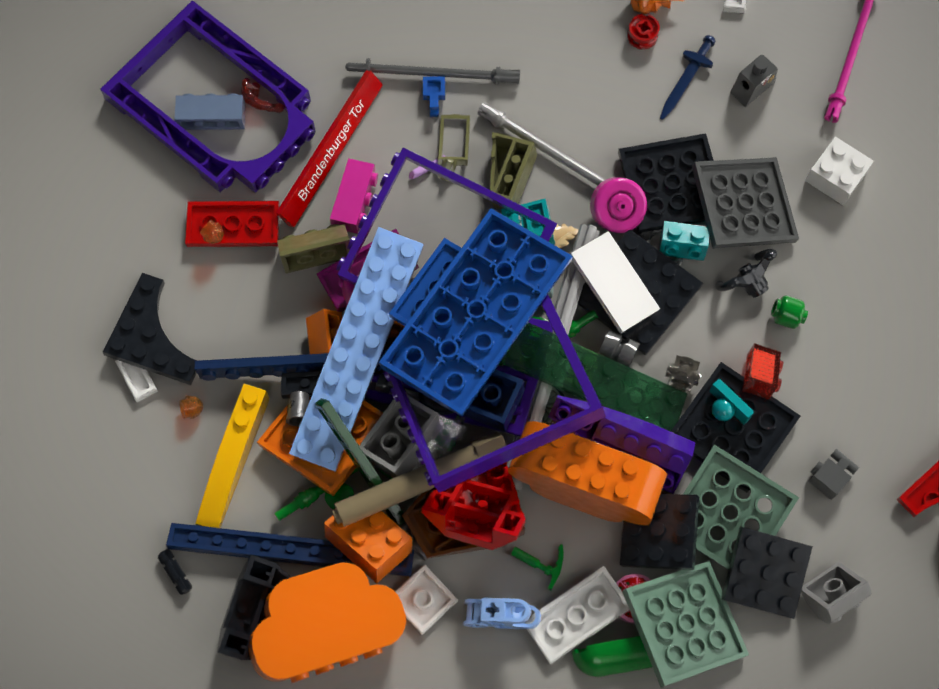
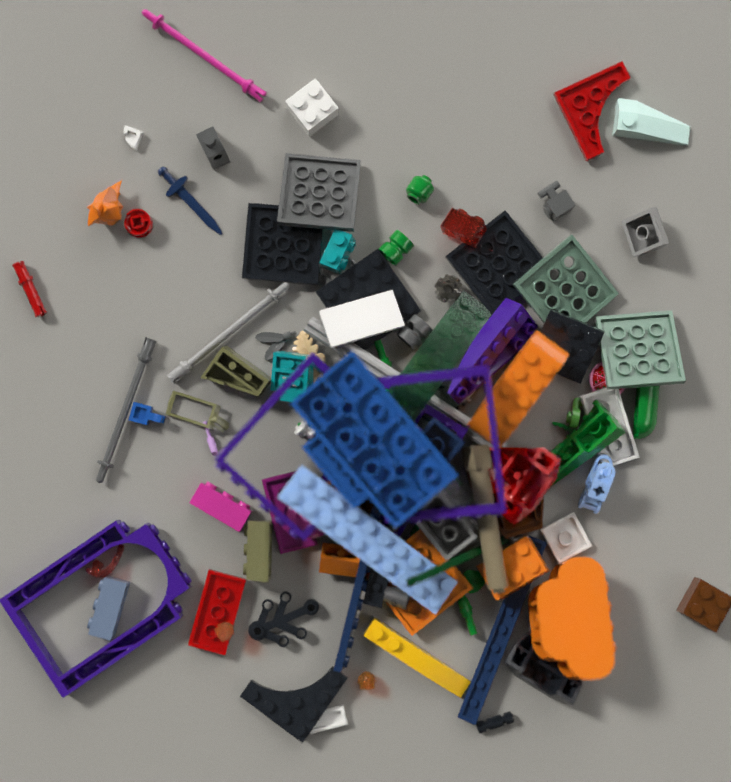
camera: 75 degrees left, 15 degrees up
(240, 294) = (280, 620): none -> black plant
(329, 149) = (171, 514): red tile -> none
(561, 207) = (277, 340): none -> dark grey piece
(562, 595) = (594, 434): none -> green wedge
(576, 566) = (574, 416): none -> bright green plate
(618, 205) = (293, 294): dark pink wheel -> none
(711, 303) = (398, 245): none -> green wheel
(728, 404) = (484, 262): teal tile -> none
(751, 276) = (382, 208): black piece -> none
(766, 572) = (618, 277): black plate -> none

